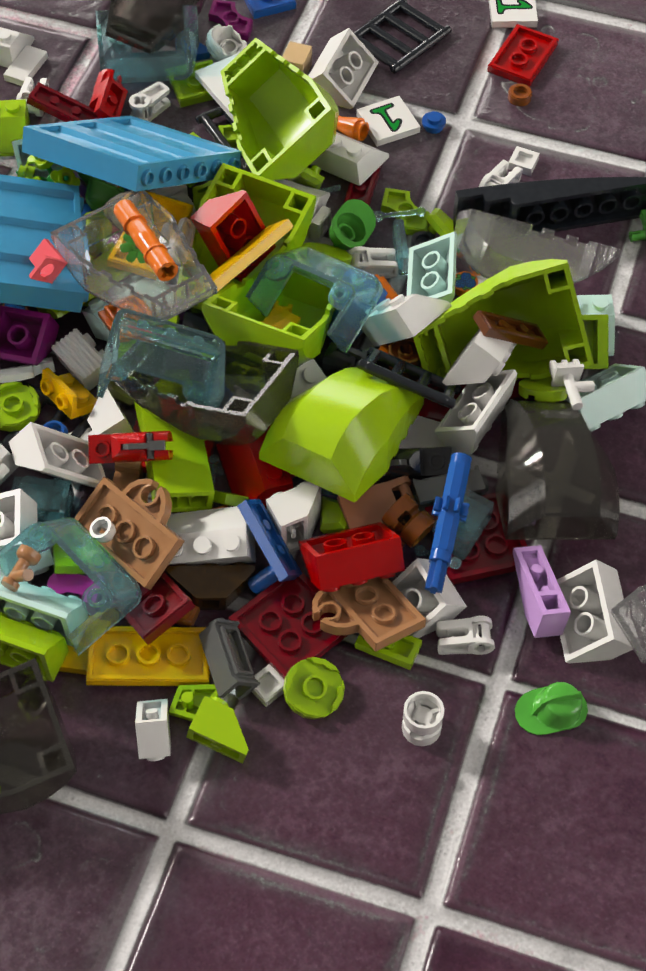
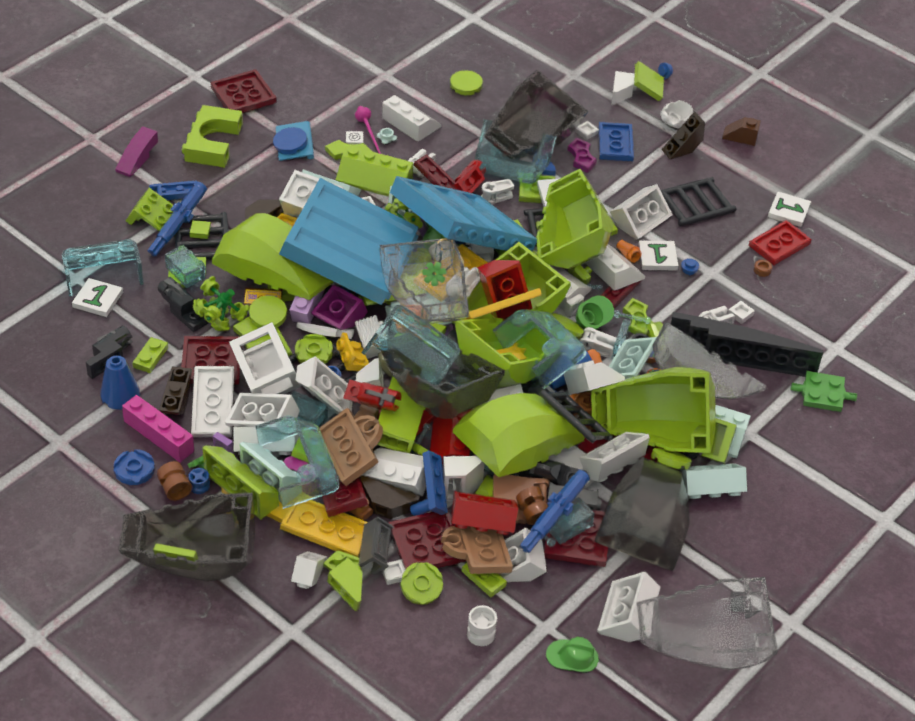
camera: 20 degrees right, 10 degrees down
(25, 65) = (426, 141): white tile -> none
(27, 557) = (275, 434): medium nougat piece -> none
(47, 262) = (371, 263): coral bracket -> none
(104, 524) = (334, 436): white hinge -> none
(154, 252) = (437, 270): orange piece -> none
(224, 42) = (565, 165): white hair -> none
(299, 56) = (615, 193): tan panel -> none
(463, 636) = (536, 590): white piece -> none
(479, 360) = (634, 417): white slope -> none
(510, 329) = (659, 409): reddish brown tile -> none
(540, 592) = (599, 581): lavender slope -> none
(569, 375) = (687, 454): white arm -> none

